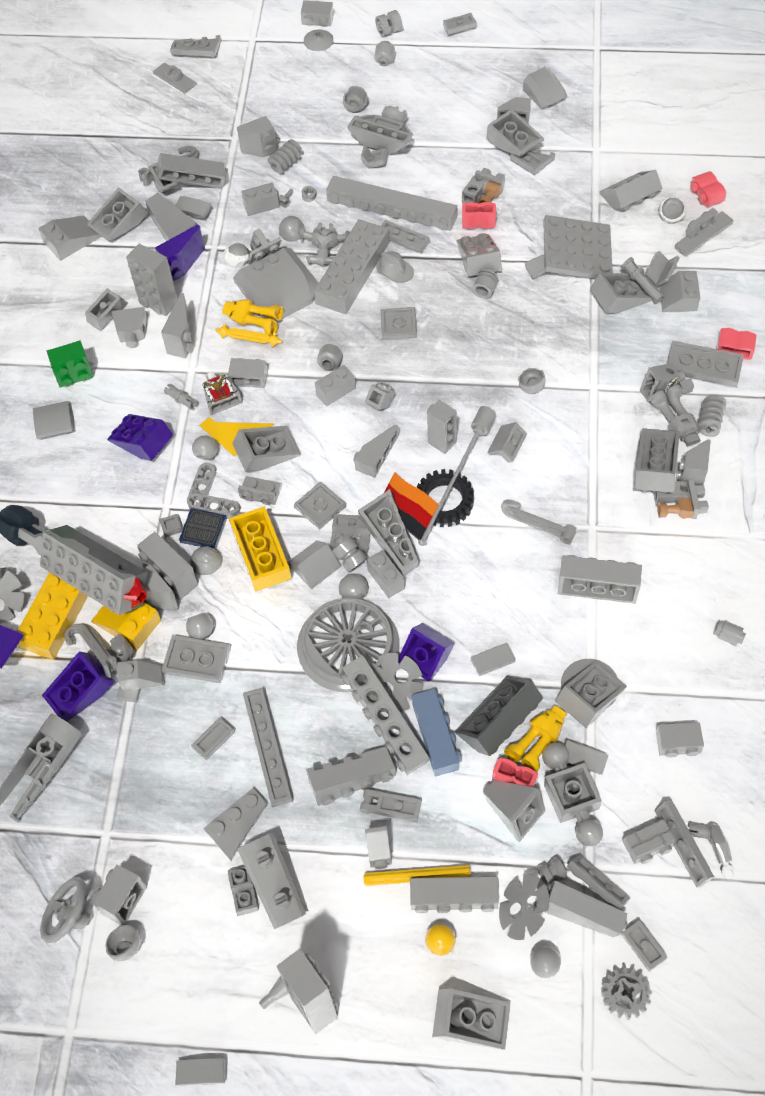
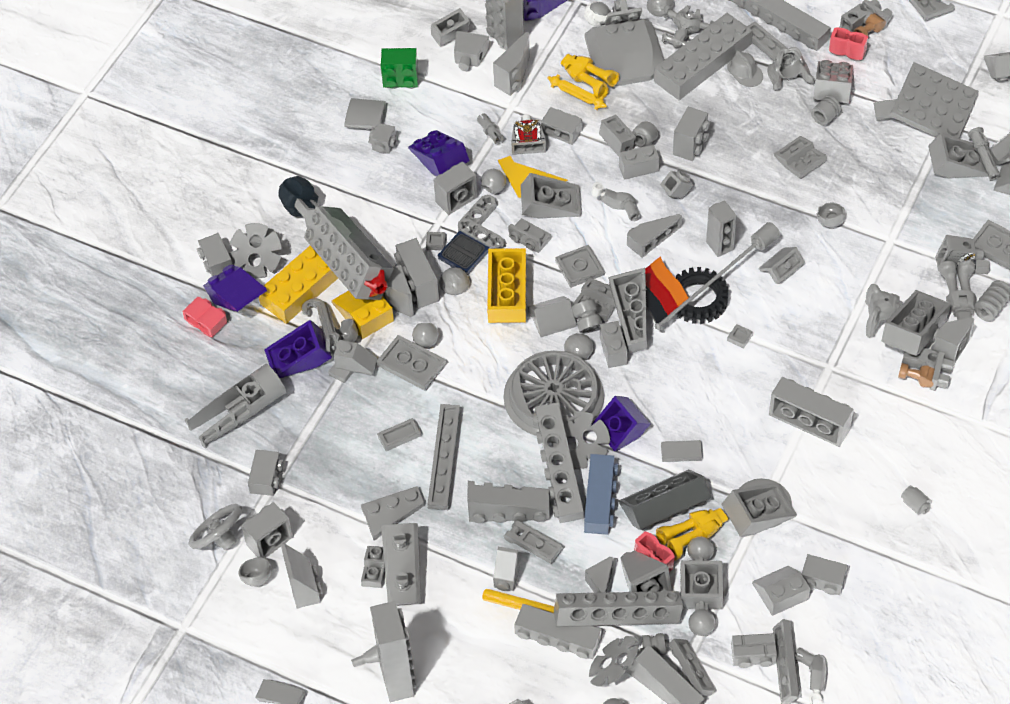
camera: 20 degrees right, 5 degrees down
(79, 438) = (382, 138): none -> light grey brick
(92, 829) = (264, 472): none -> light grey brick
(171, 466) = (455, 188): none -> light grey brick
(175, 934) = (301, 577): none -> light grey slope
(303, 365) = (616, 134): none -> light grey hinge
(330, 429) = (617, 200): none -> light grey arm
(373, 343) = (690, 133): none -> light grey brick
(398, 323) = (726, 123): light grey tile -> none
(432, 252) = (788, 65): none -> light grey hair
(440, 939) = (528, 663): yellow piece -> none
(471, 821) = (599, 575): none -> light grey slope
(479, 334) = (800, 157): none -> light grey slope
(498, 525) = (740, 336): none -> light grey tile
(504, 850) = (618, 608): none -> light grey brick
(565, 533) = (799, 362): light grey piece -> none
(581, 754) = (731, 562): light grey slope -> none
(618, 455) = (880, 307): none -> light grey hair
(647, 767) = (782, 589): none -> light grey slope

